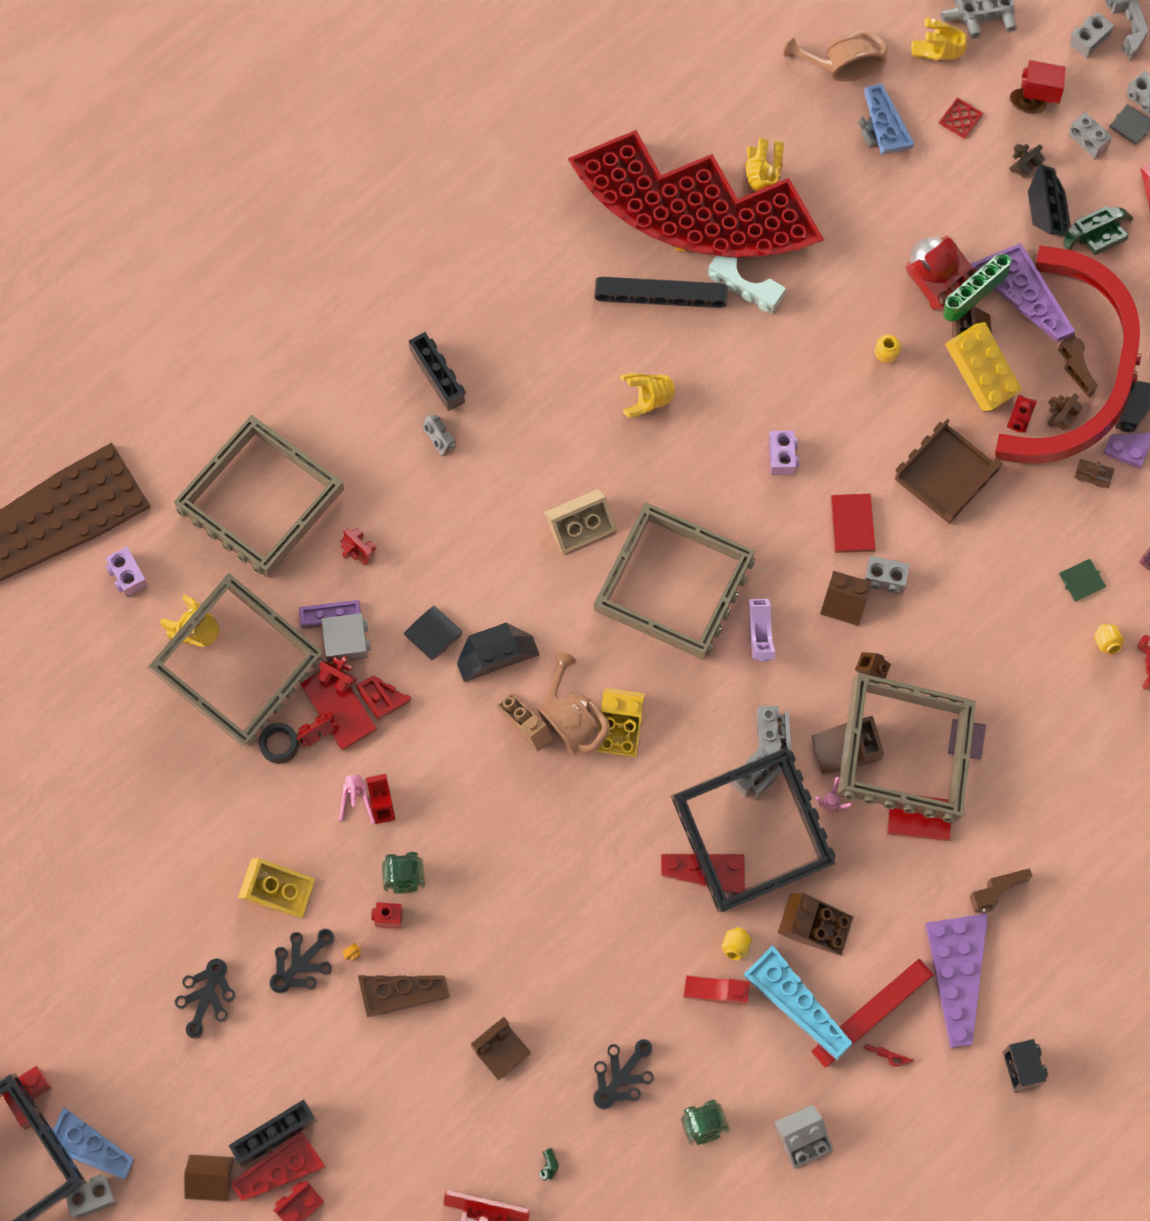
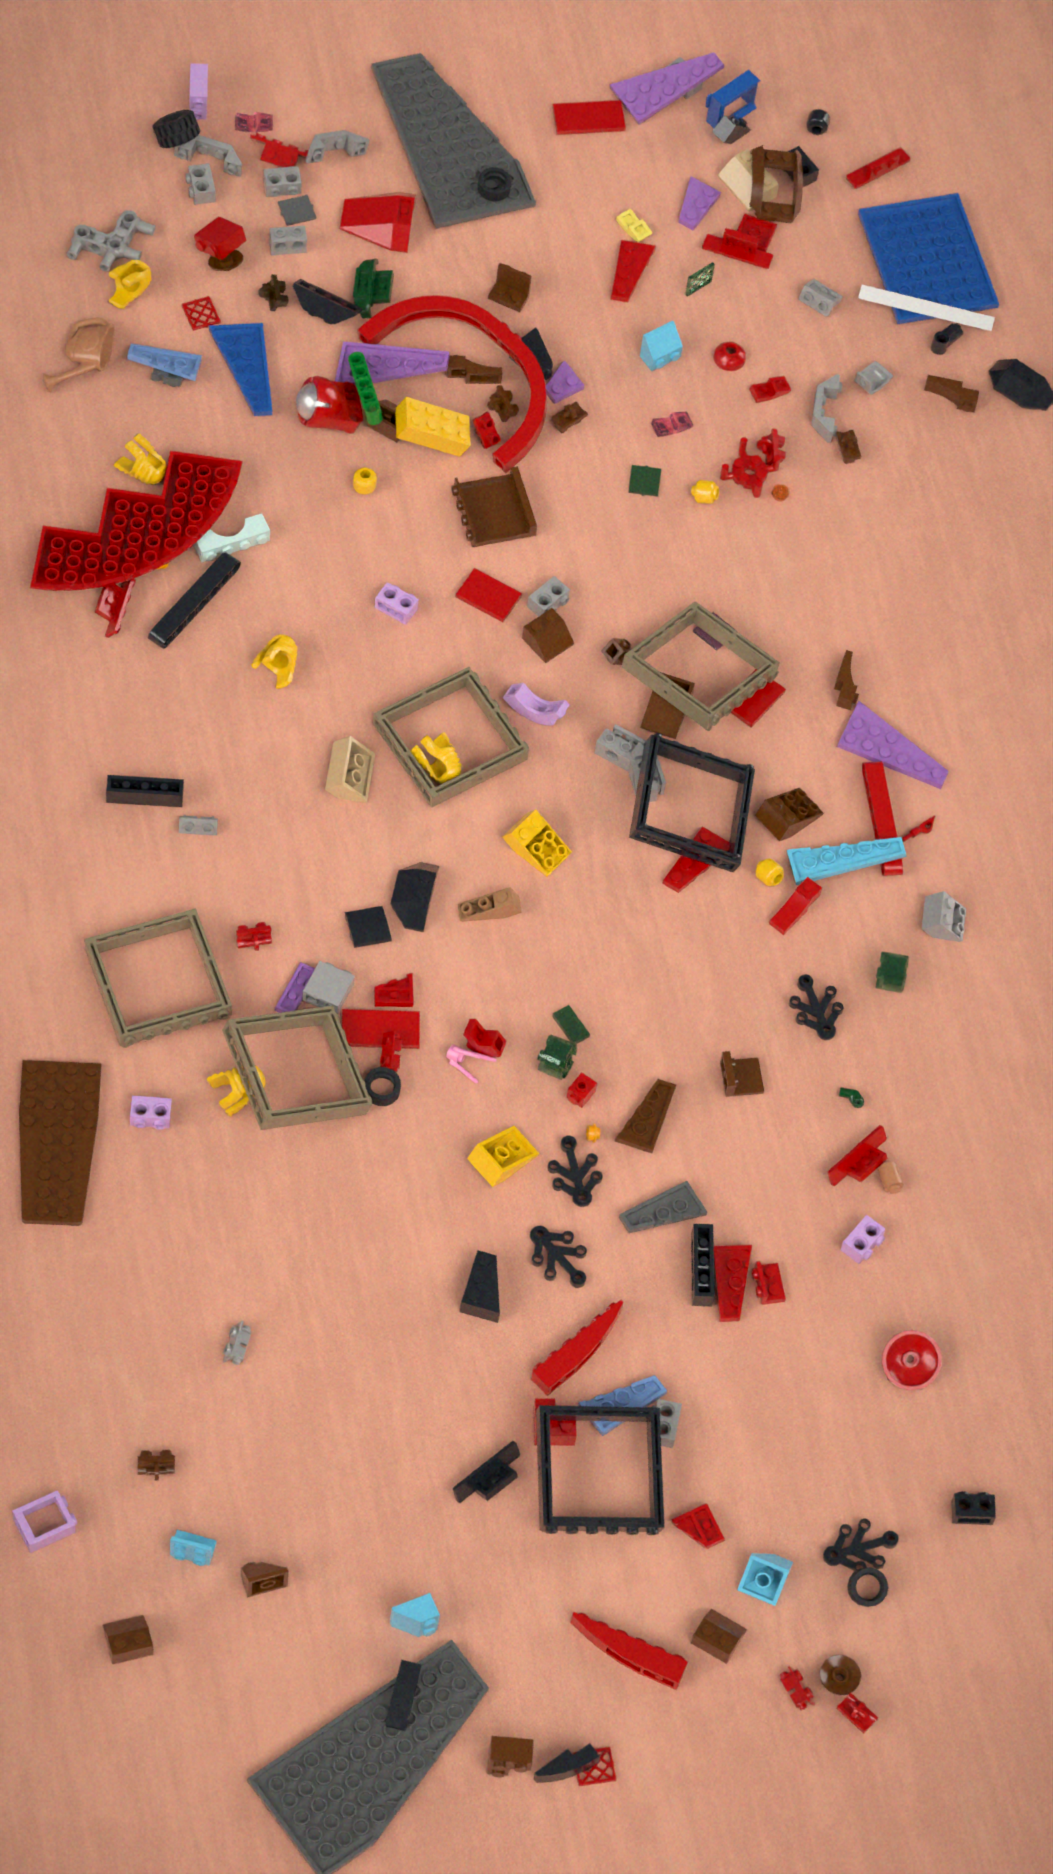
camera: 65 degrees left, 10 degrees down
(116, 1073) = (576, 1351): none -> red slope
(127, 951) = (482, 1290): none -> black wedge
(208, 1177) = (704, 1333): reddish brown slope -> none
(321, 1068) = (666, 1208): none -> dark grey wing
(328, 670) = (350, 1012): red hips -> none
(453, 865) = (571, 1025): none -> clear green tile
(571, 715) = (511, 868): nougat piece -> none
(607, 231) = (113, 603): none -> red bracket
(641, 593) = (446, 764): none -> yellow hair
(832, 800) = (703, 743): bright pink plant -> none
(942, 178) = (246, 357): none -> blue wing
(1025, 1065) = (989, 745): black brick -> none

